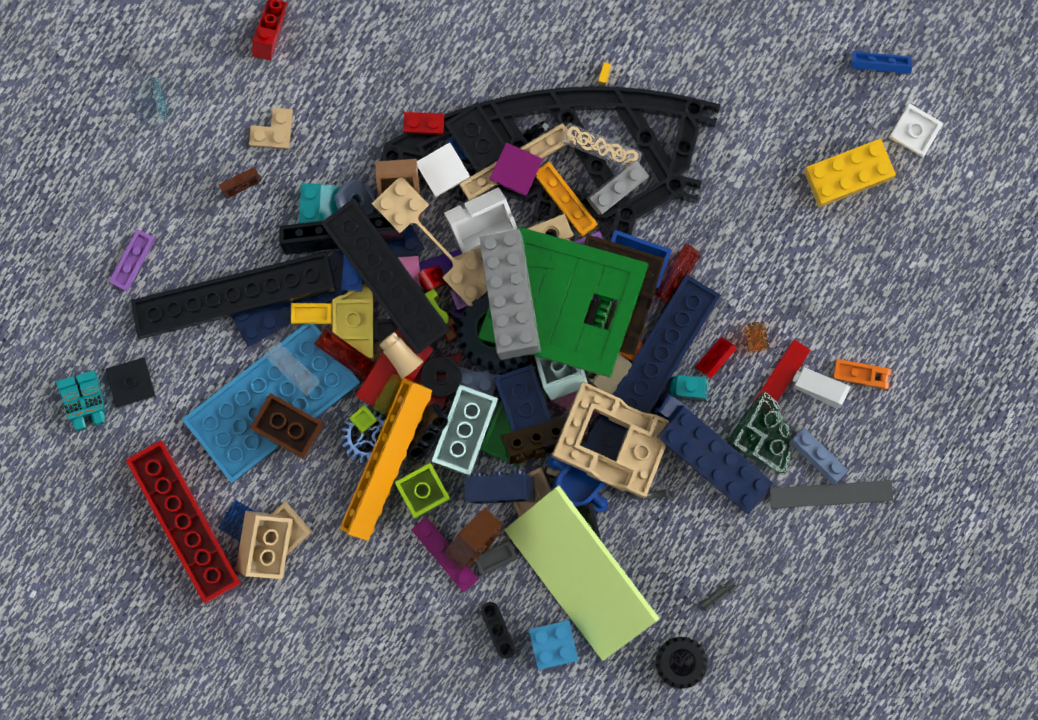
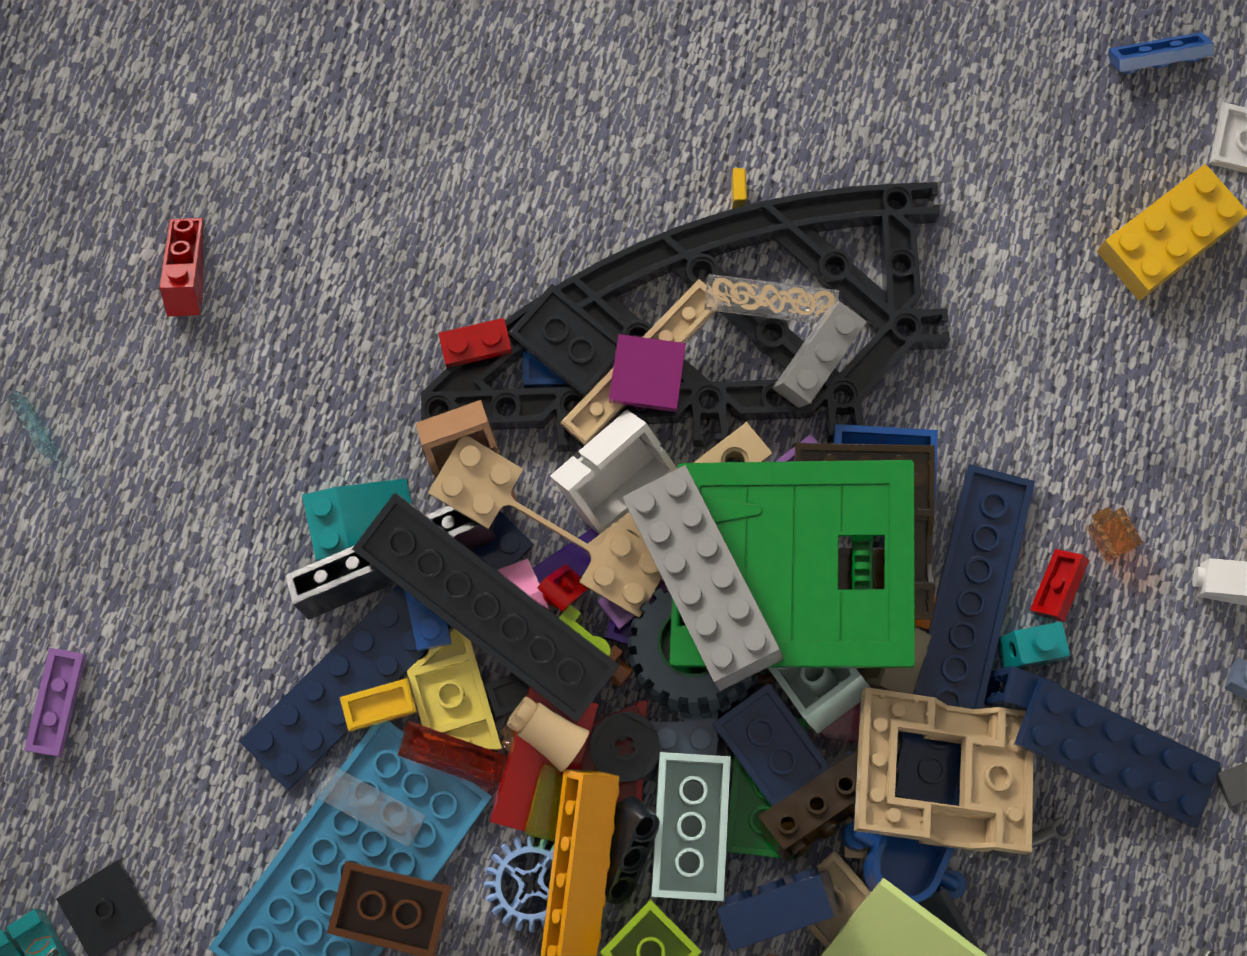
camera: 15 degrees left, 5 degrees down
(232, 295) = (237, 713): black plate -> none
(240, 182) = (201, 523): copper plate -> none
(275, 136) = (243, 429): tan plate -> none
(356, 189) = (394, 480): sand blue plate -> none
(363, 419) = (515, 858): lime tile -> none
(442, 170) = (527, 408): white tile -> none
(536, 131) = (660, 304): black axle -> none
(565, 199) = (741, 399): light orange tile -> none
(683, 265) = (958, 453): clear red plate -> none
(763, 434) = (1178, 687): clear green brick -> none
(785, 370) = (1172, 588): red tile -> none

